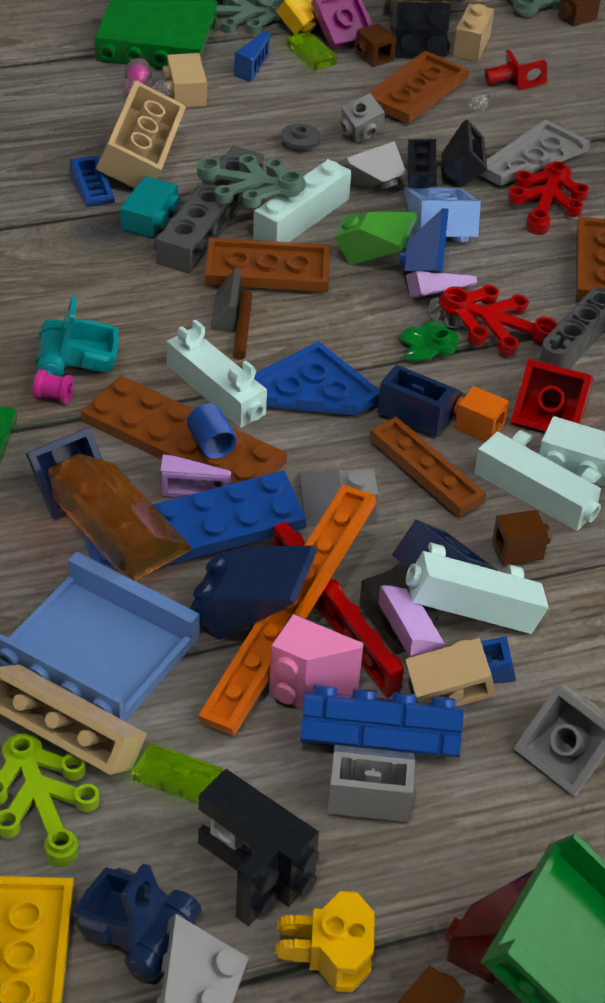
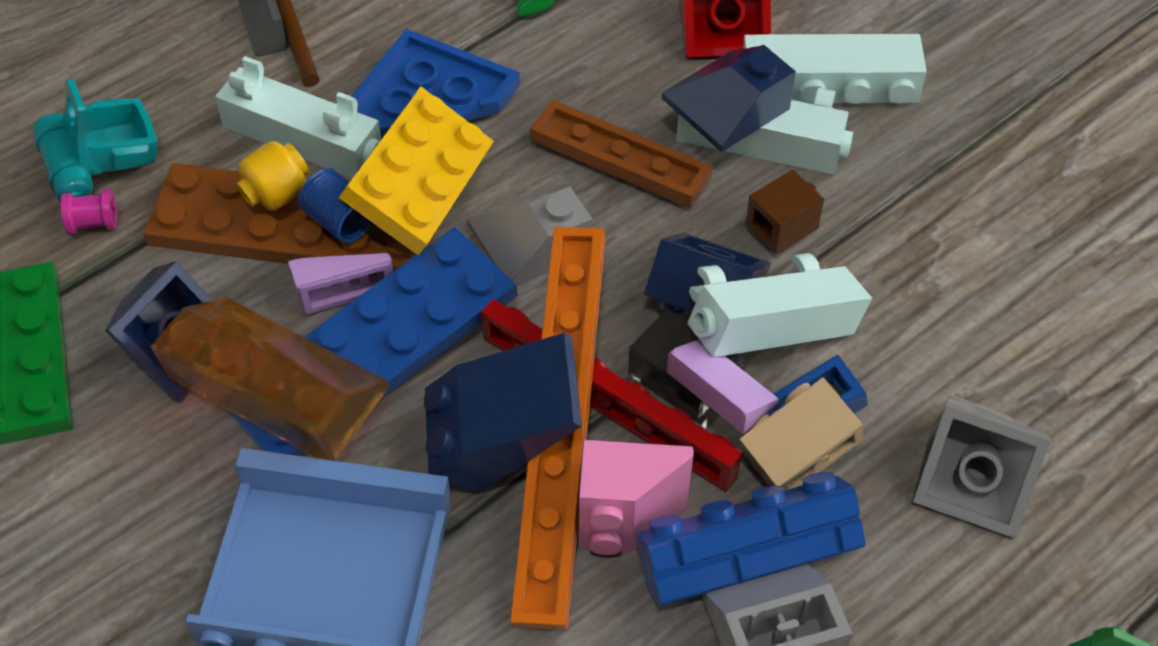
camera: 20 degrees left, 10 degrees up
(177, 398) = (272, 175): none -> yellow head
(276, 426) = (417, 171): none -> yellow plate
(417, 400) = (569, 69): dark blue slope -> none
(480, 413) = (650, 59): orange brick -> none
(520, 451) = (734, 95): none -> dark blue slope

